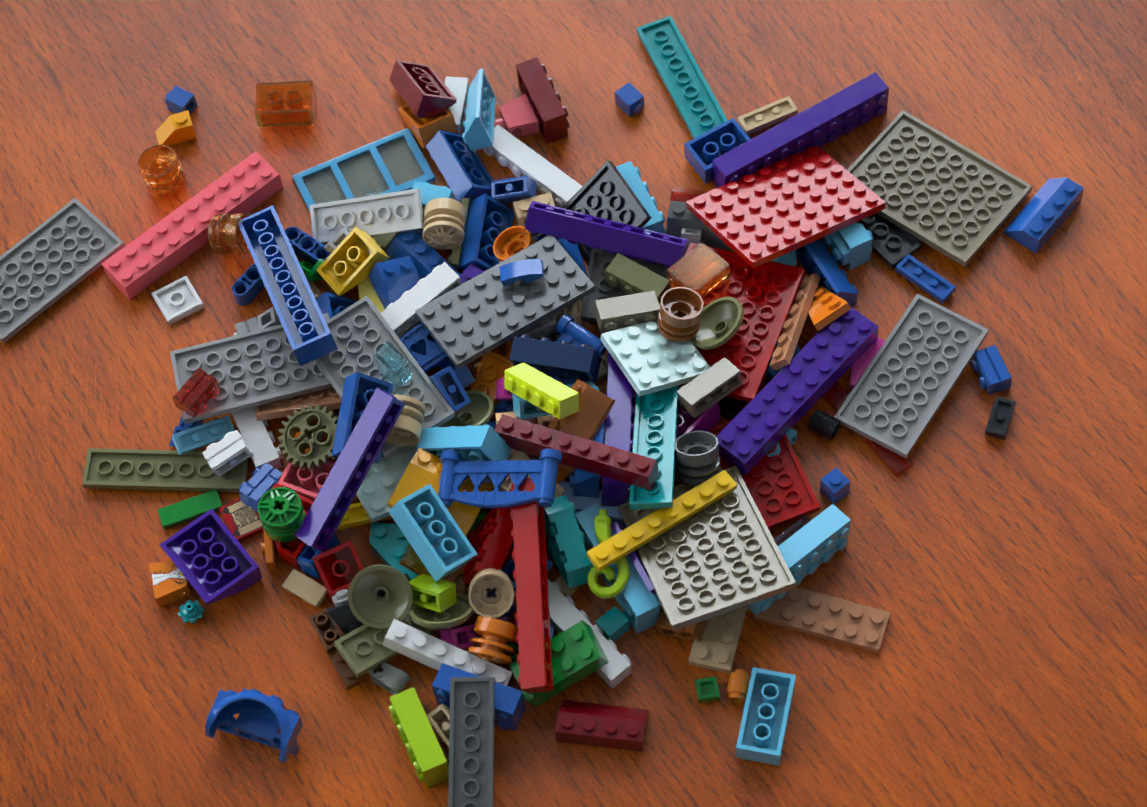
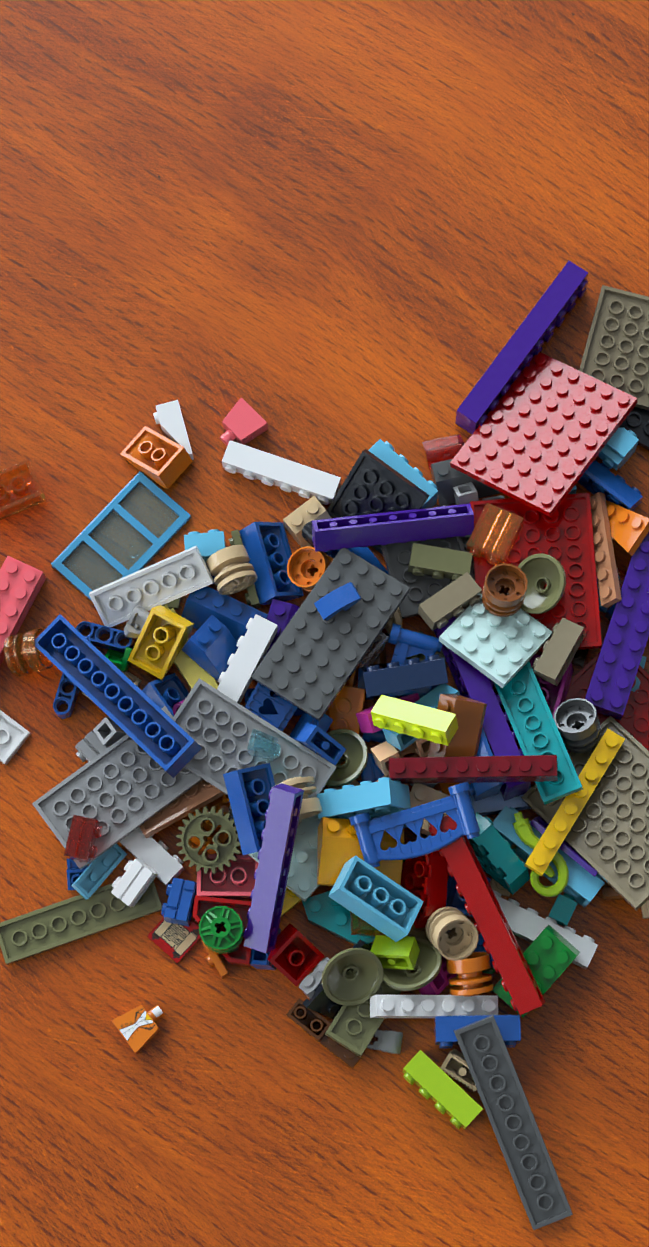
camera: 25 degrees left, 15 degrees up
(189, 509) = (119, 947): green tile -> none
(191, 611) = (171, 1049): teal plant -> none
(212, 558) = (168, 993): dark purple slope -> none
(259, 720) = (288, 1131): blue piece -> none
(305, 588) = (266, 984): tan slope -> none
(421, 89) = (139, 429): dark red slope -> none
(459, 166) = (212, 496): blue slope -> none
(479, 113) = (208, 436): medium azure slope -> none
(513, 189) = (277, 505): blue brick -> none
(543, 99) = (265, 400): dark red brick -> none
(601, 725) = (594, 1008): dark red slope -> none
(629, 99) = (341, 365): blue brick -> none
(681, 76) = (382, 324): teal plate -> none
(712, 144) = (449, 390): blue brick -> none
(767, 115) = (478, 335): tan plate -> none

